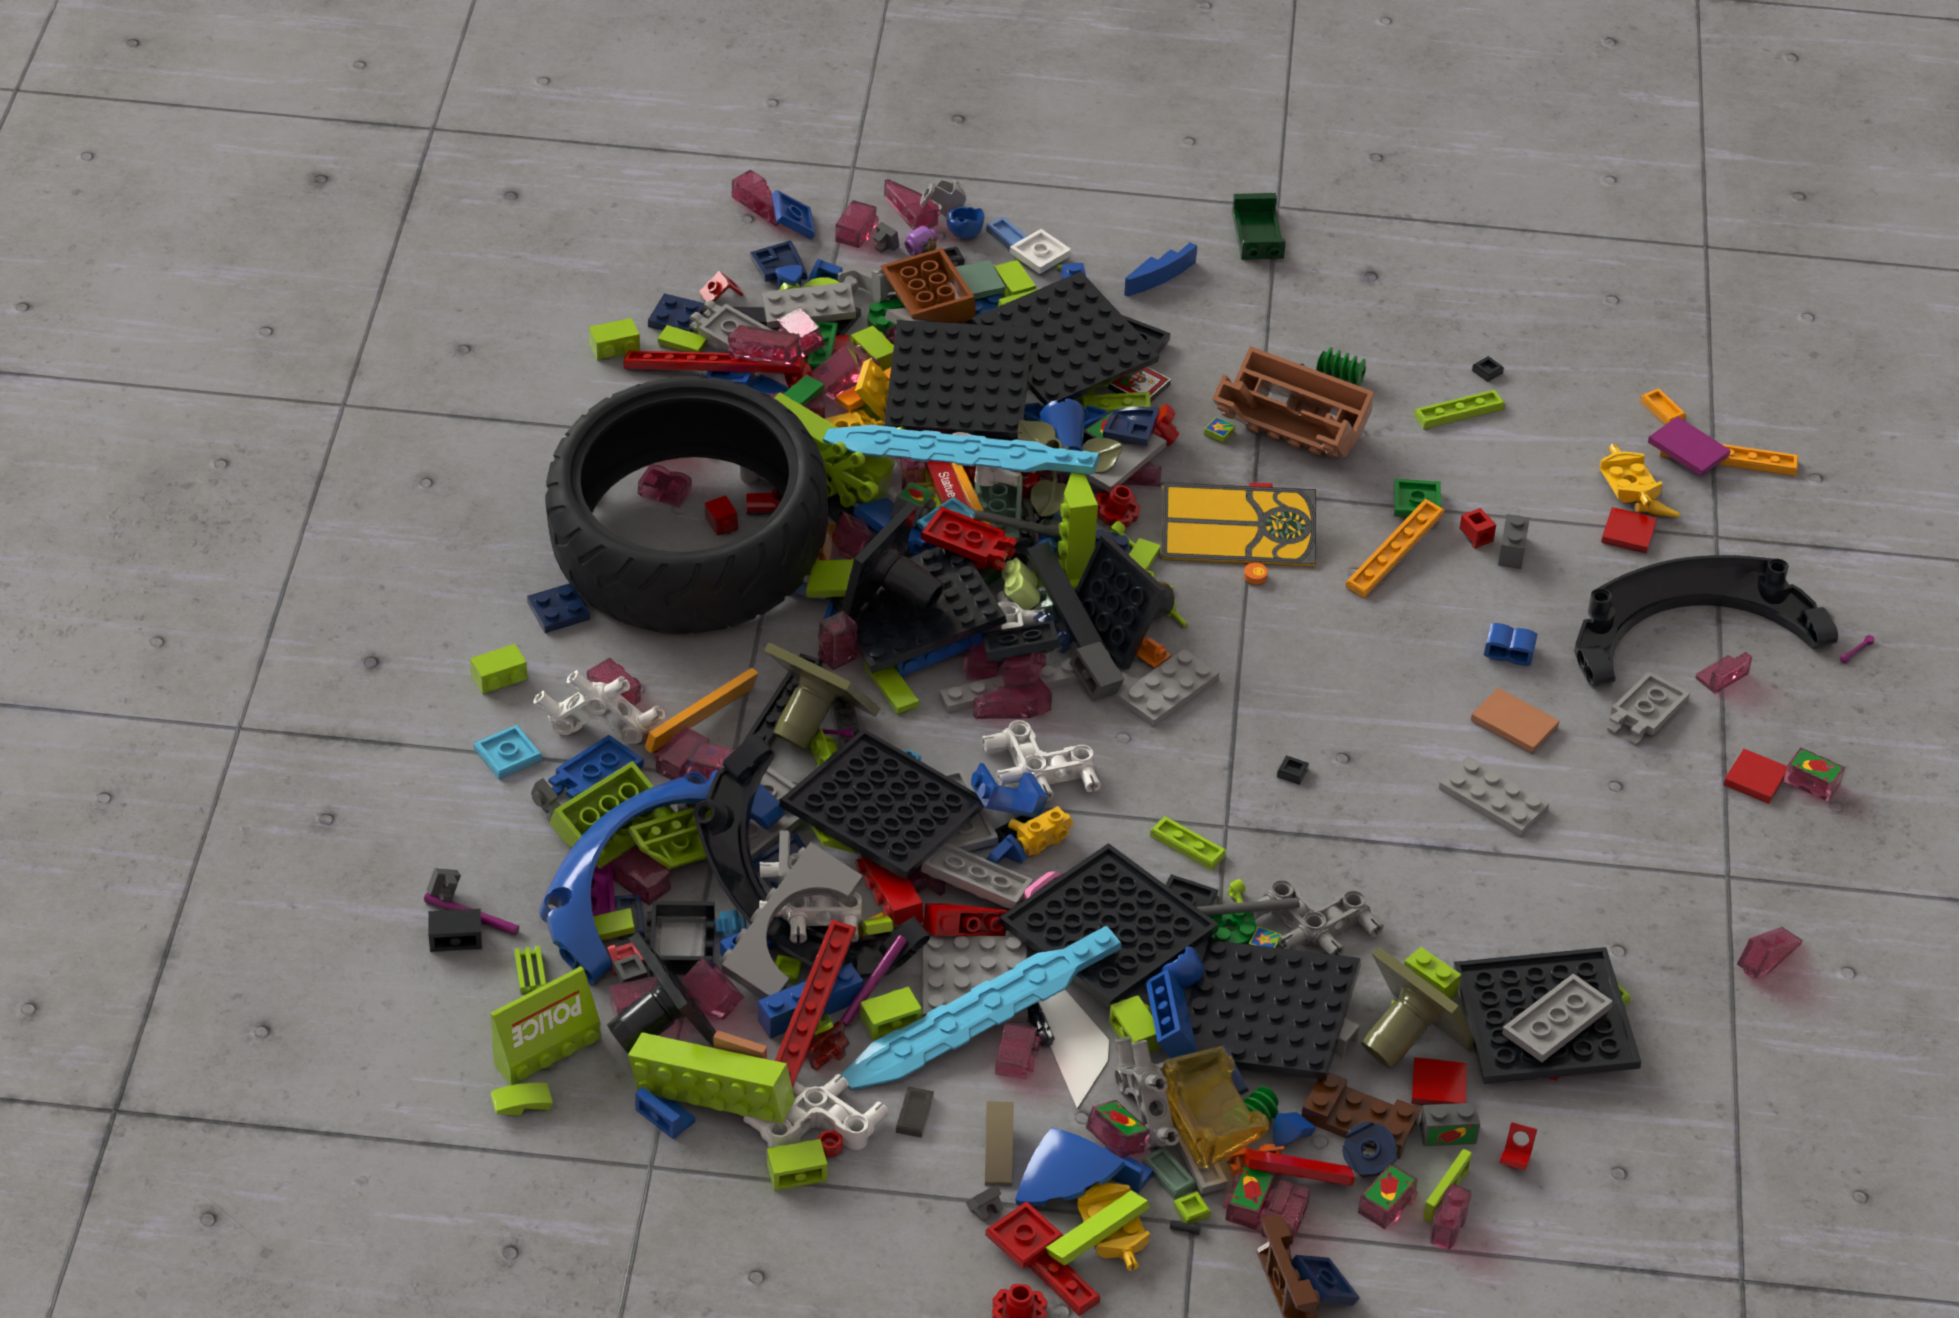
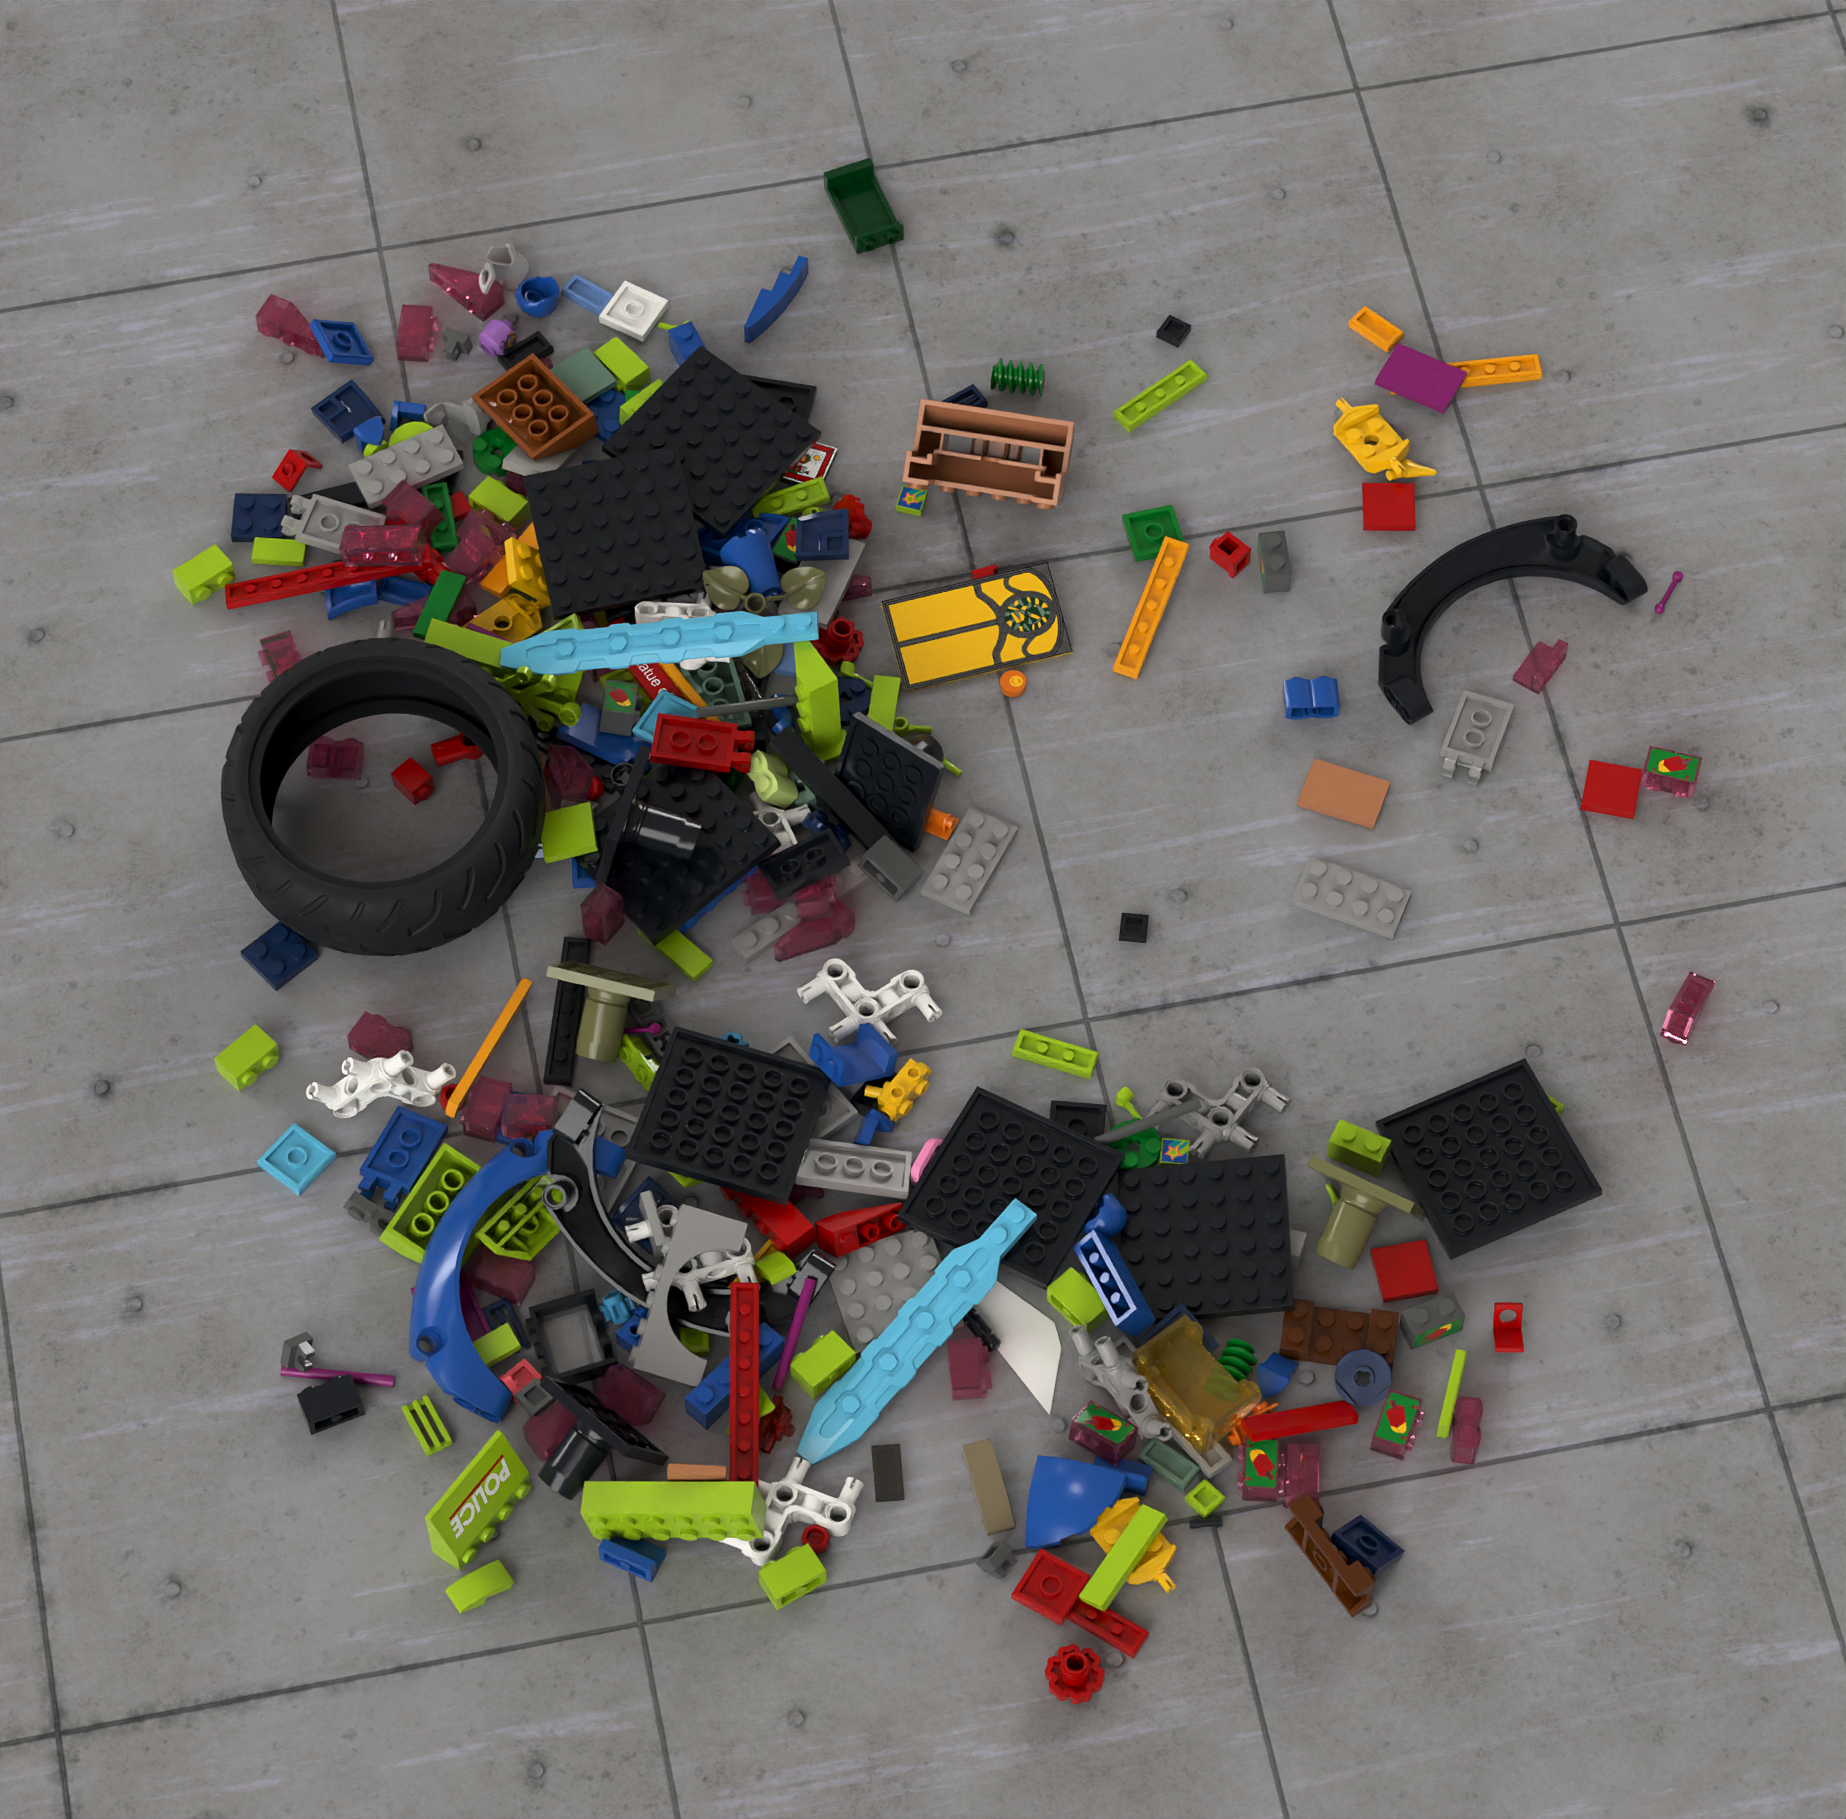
camera: 15 degrees left, 15 degrees up
(1557, 1017) = (1504, 1164): light grey plate -> none

